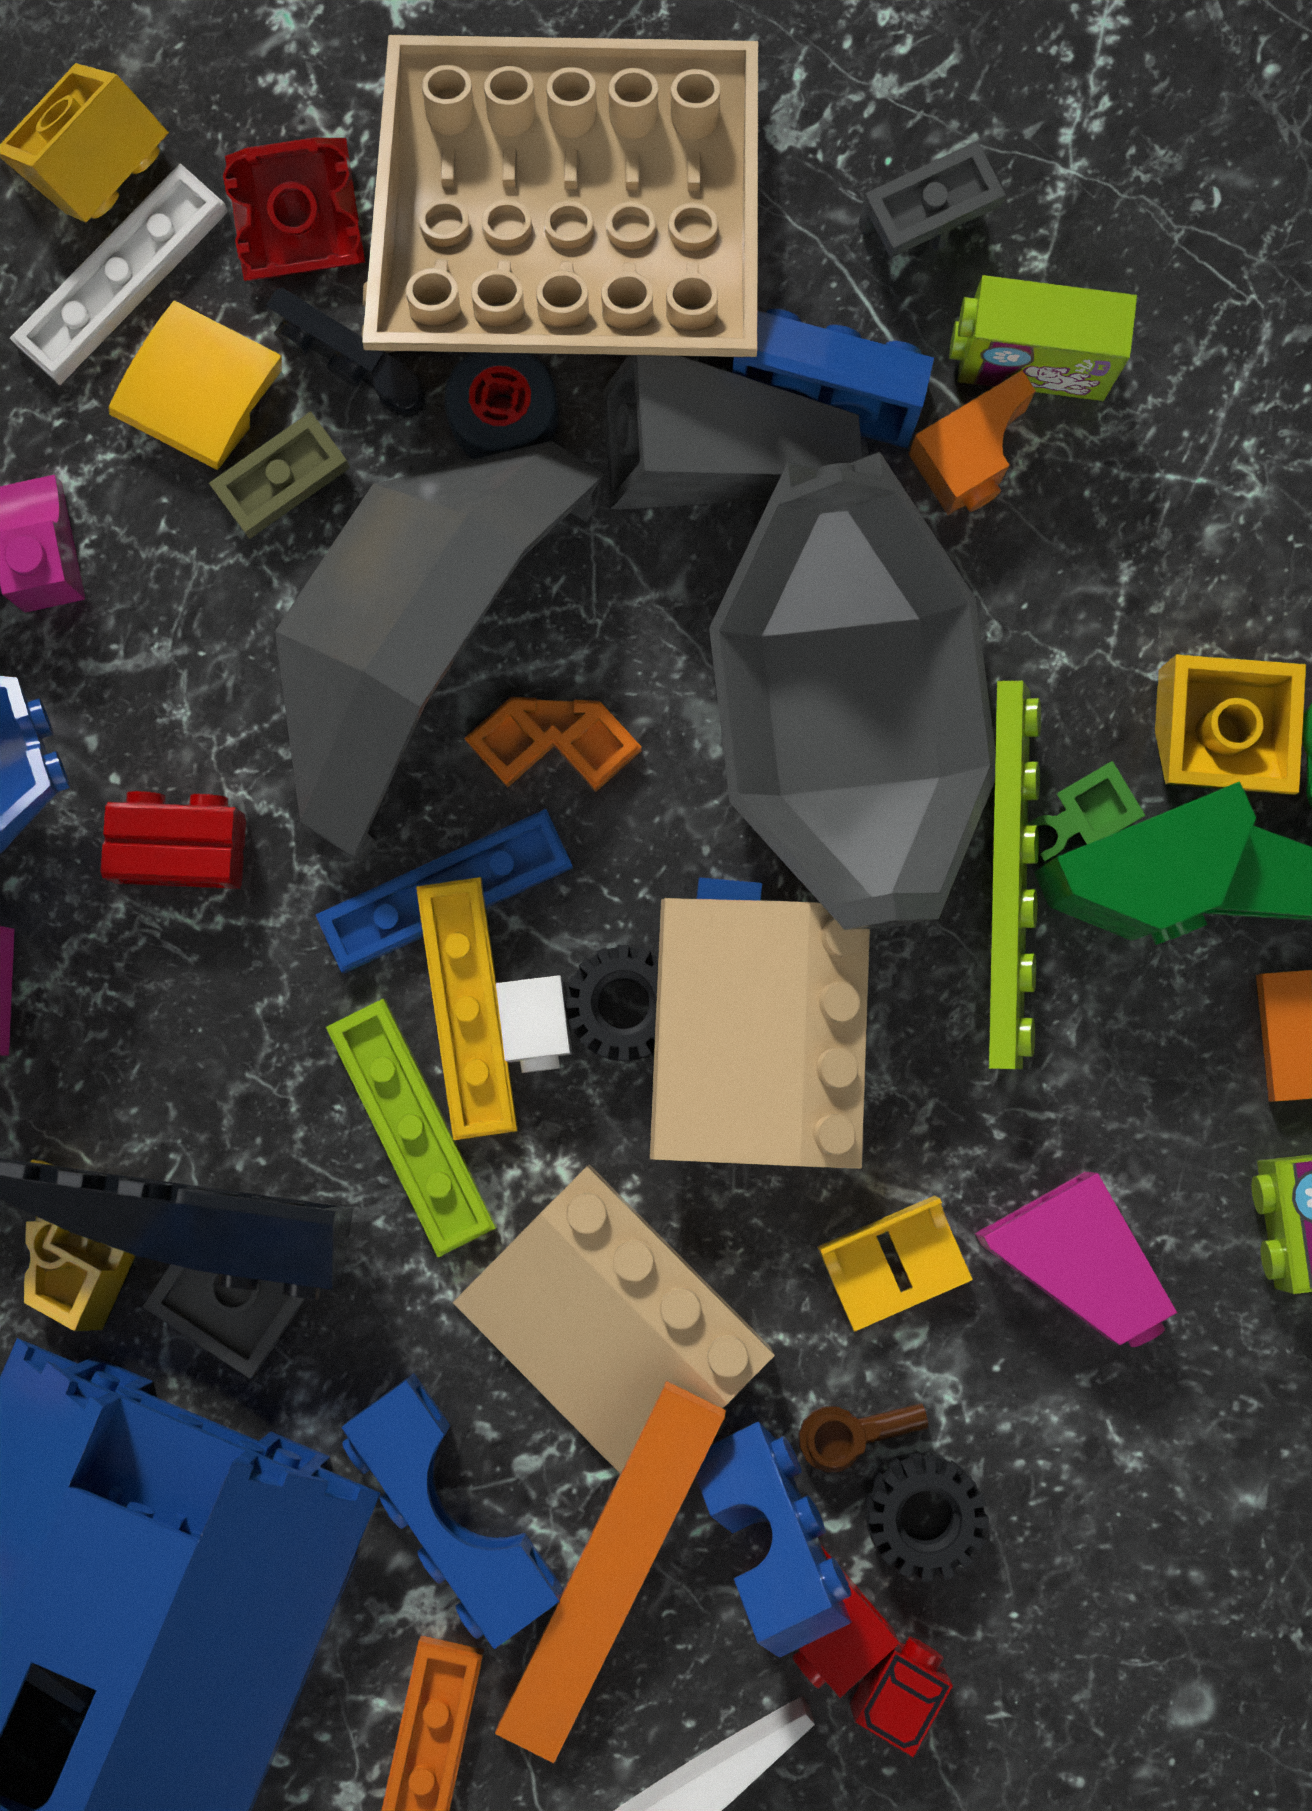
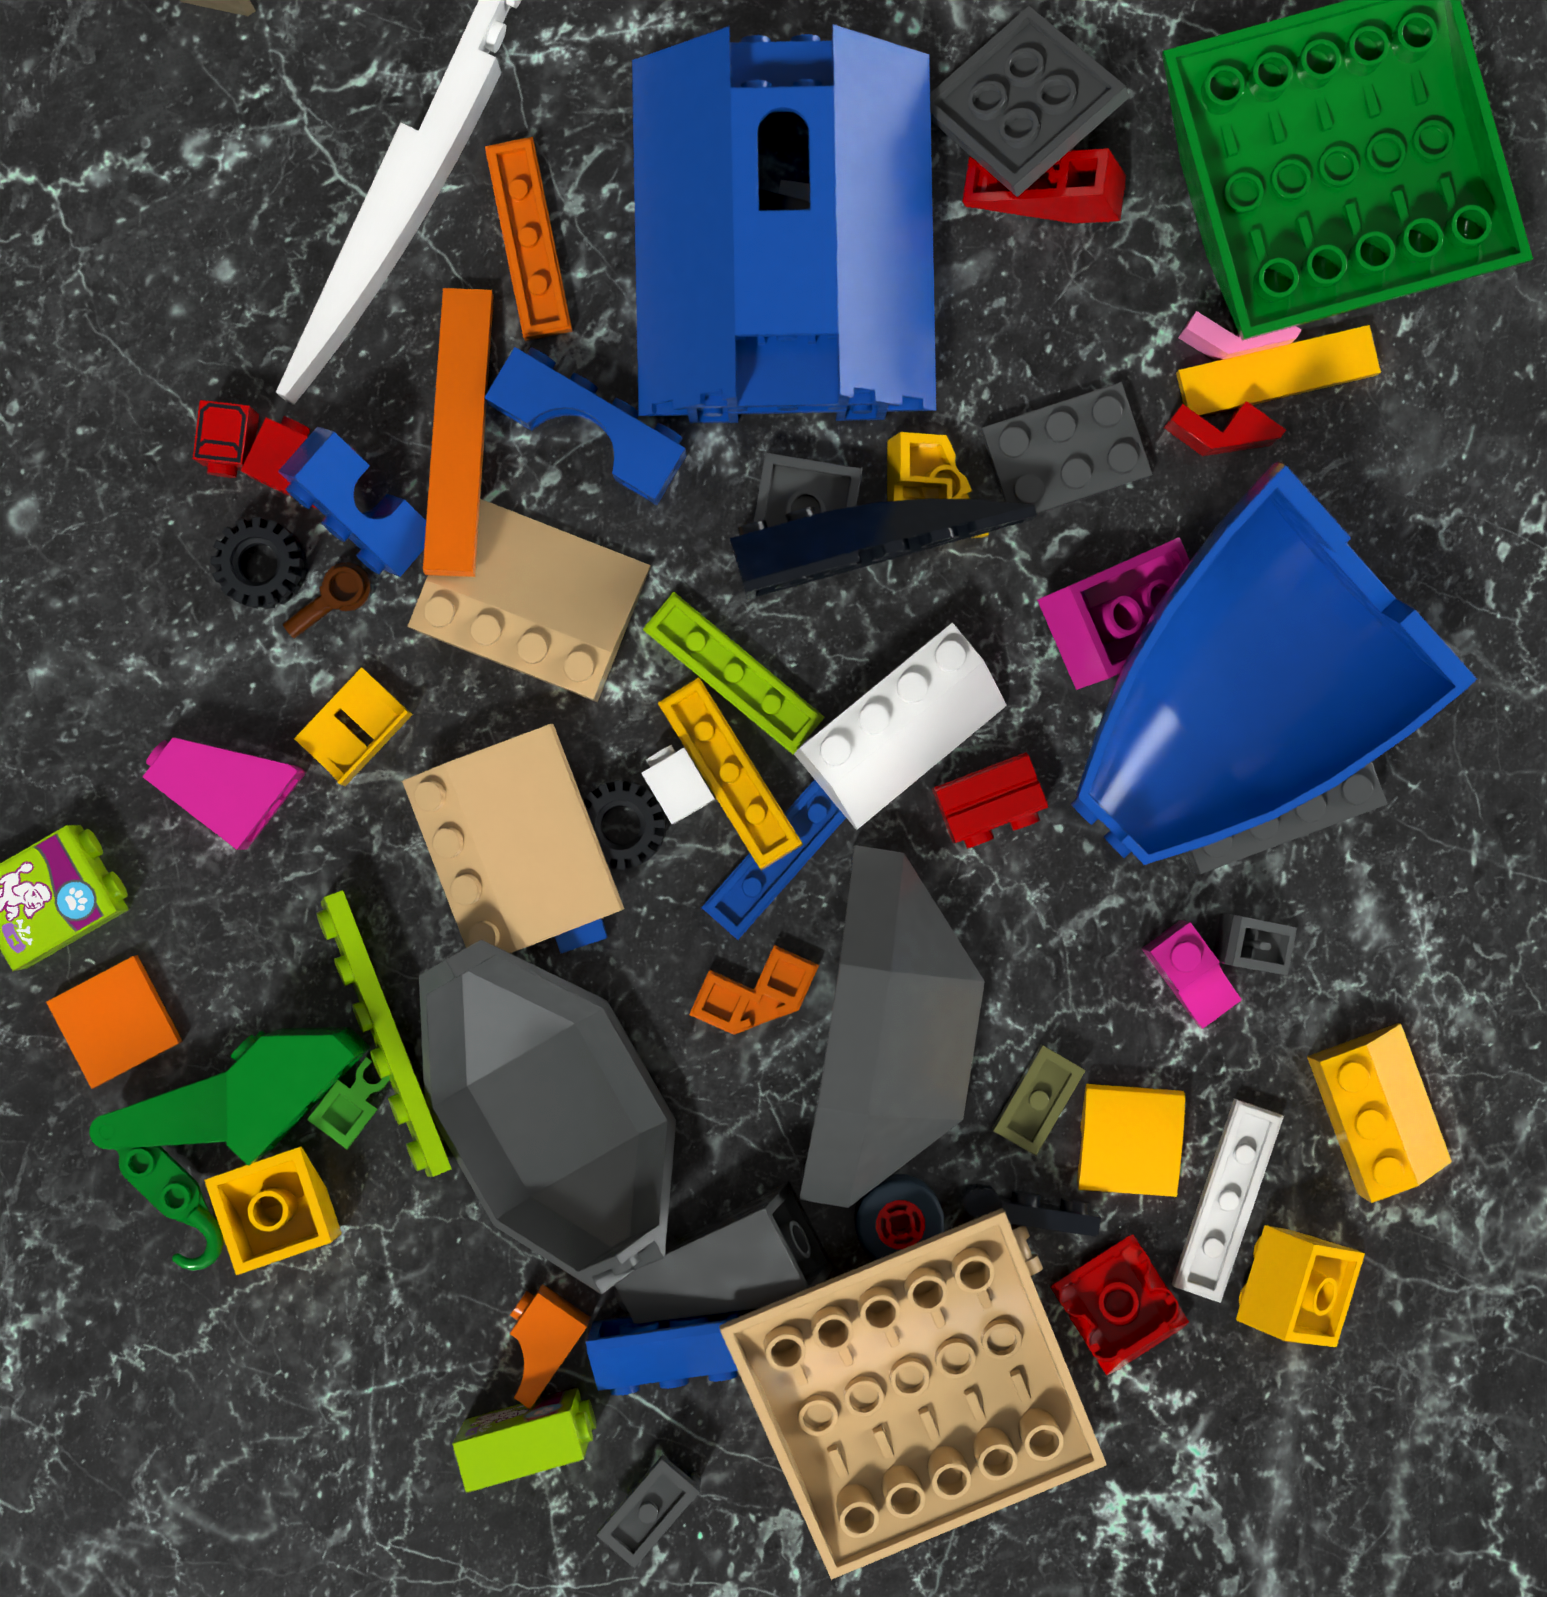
camera: 155 degrees right, 5 degrees up
(235, 975) = (902, 726): none -> white slope

